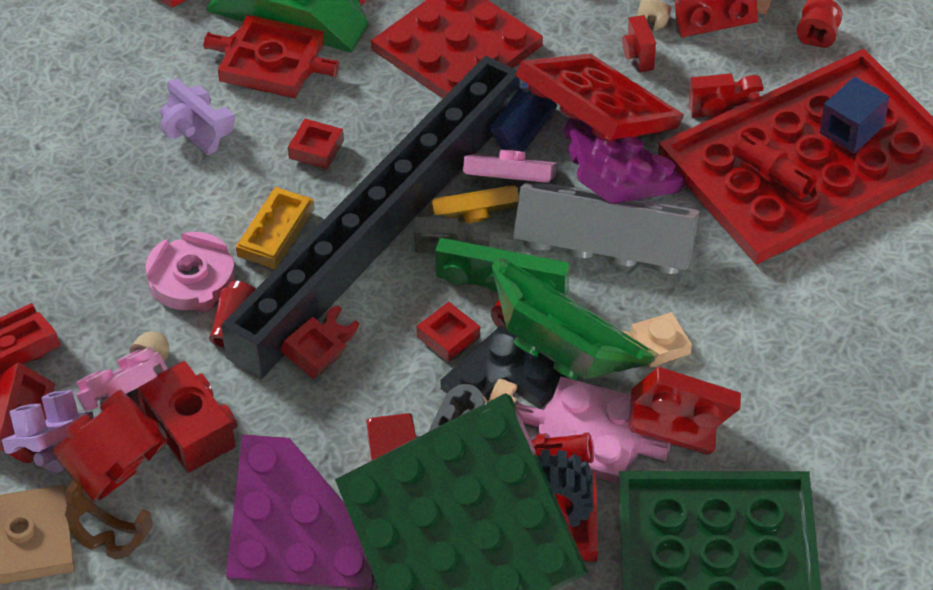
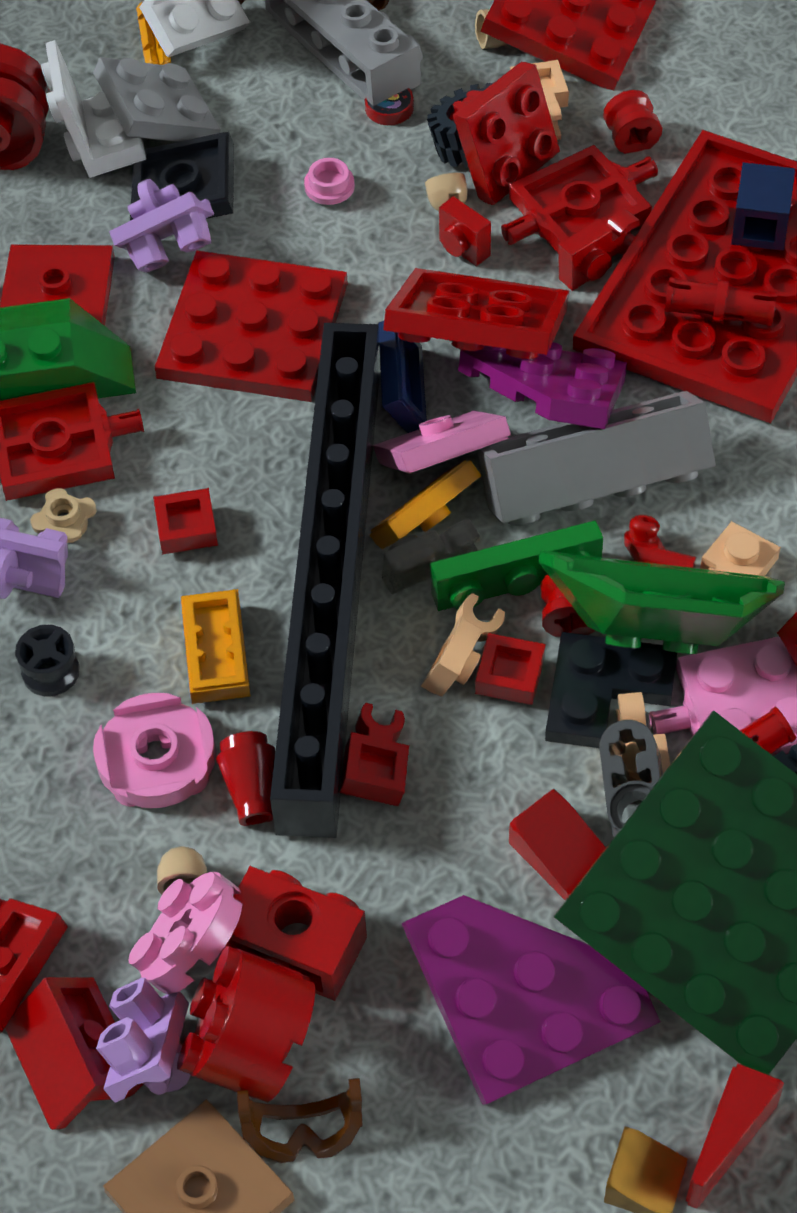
camera: 30 degrees left, 5 degrees up
(170, 176) = (47, 645): none -> black wheel
(246, 106) = (73, 524): none -> tan plate
(422, 301) = (456, 657): none -> light nougat plate
(603, 302) = (647, 547): none -> red arm
(741, 52) = (576, 194): none -> red plate

